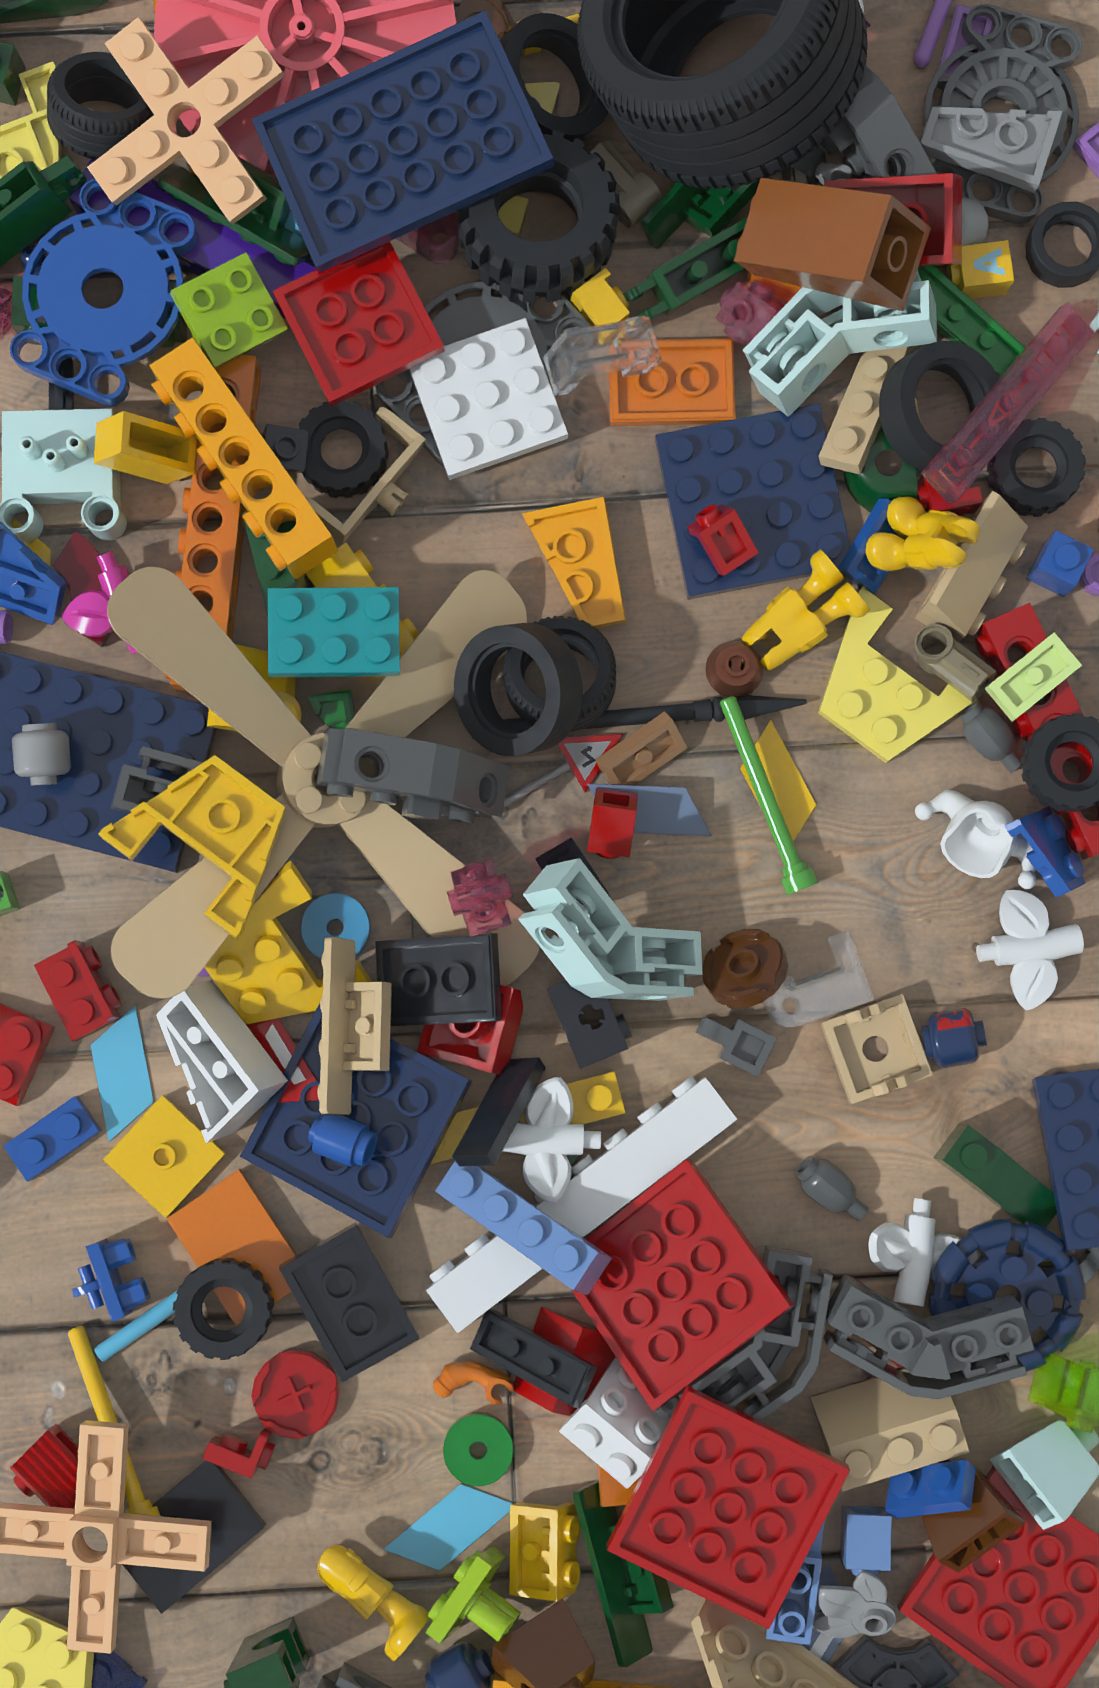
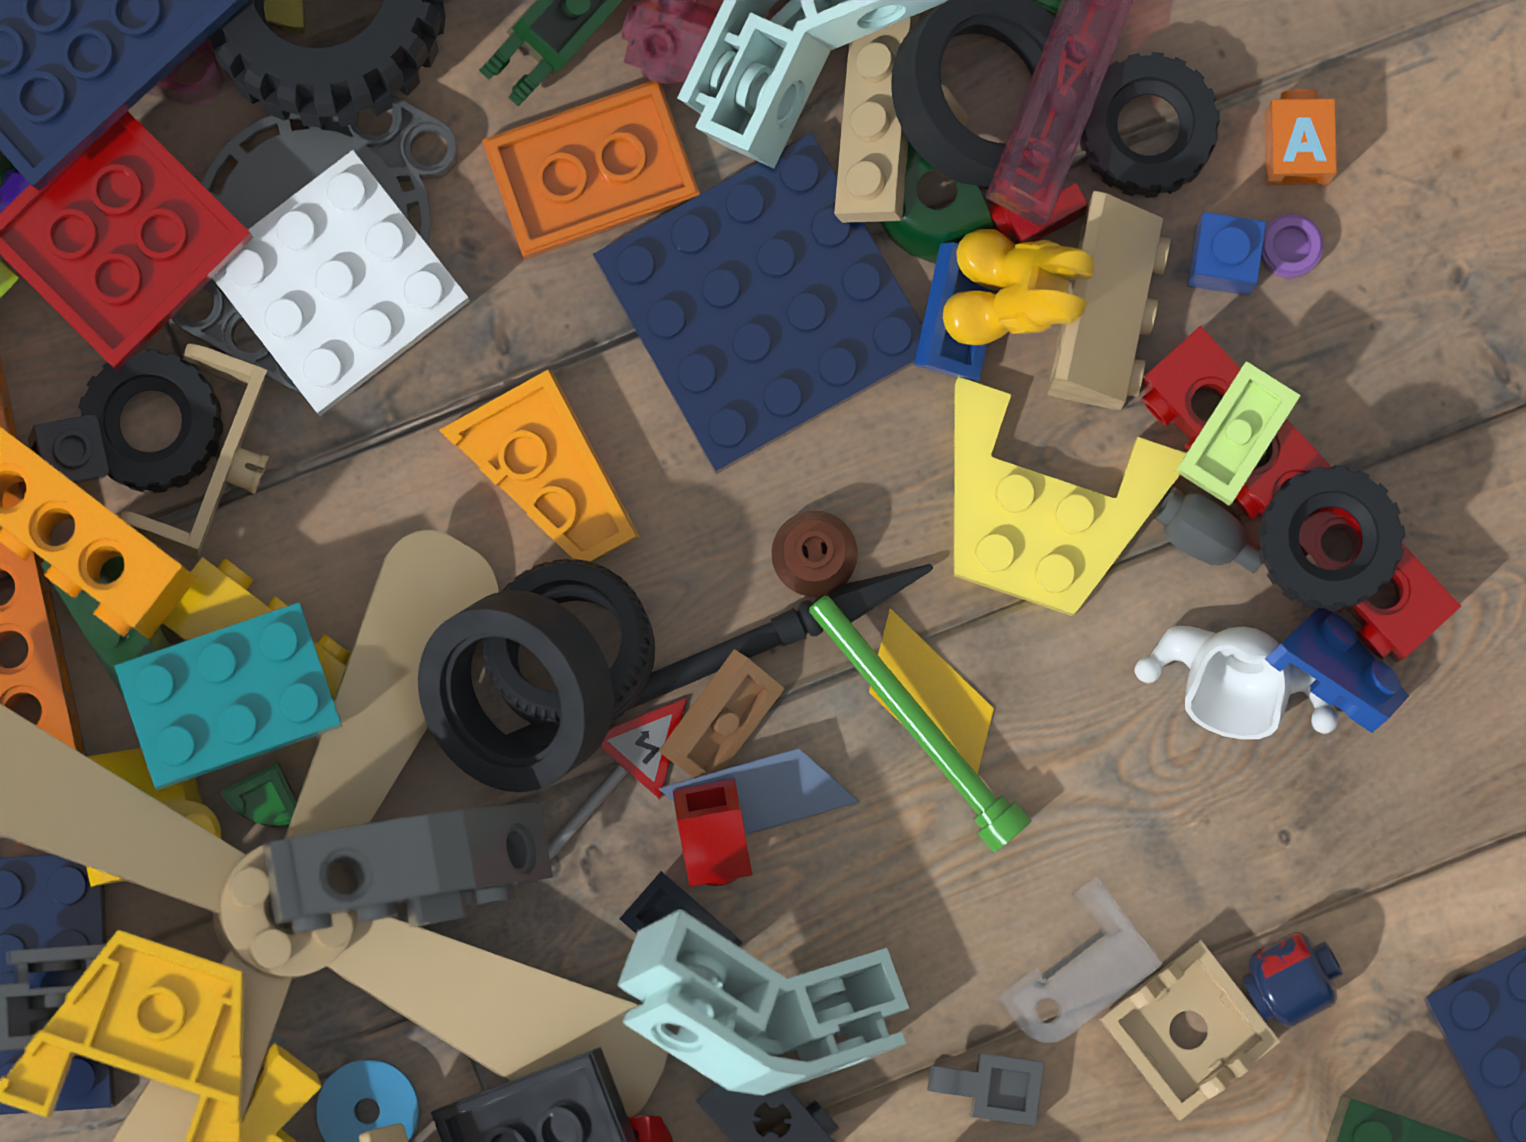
camera: 15 degrees left, 0 degrees up
(480, 897) = (560, 1004): clear pink brick -> none
(599, 301) = (458, 95): yellow brick -> none
(601, 349) = (504, 149): clear piece -> none
(723, 537) = (736, 375): red bracket -> none
(745, 968) = (966, 979): reddish brown tile -> none
(793, 621) = (883, 464): yellow piece -> none
(955, 664) = (1123, 446): dark tan piece -> none
(1030, 947) = (1359, 813): white plant -> none

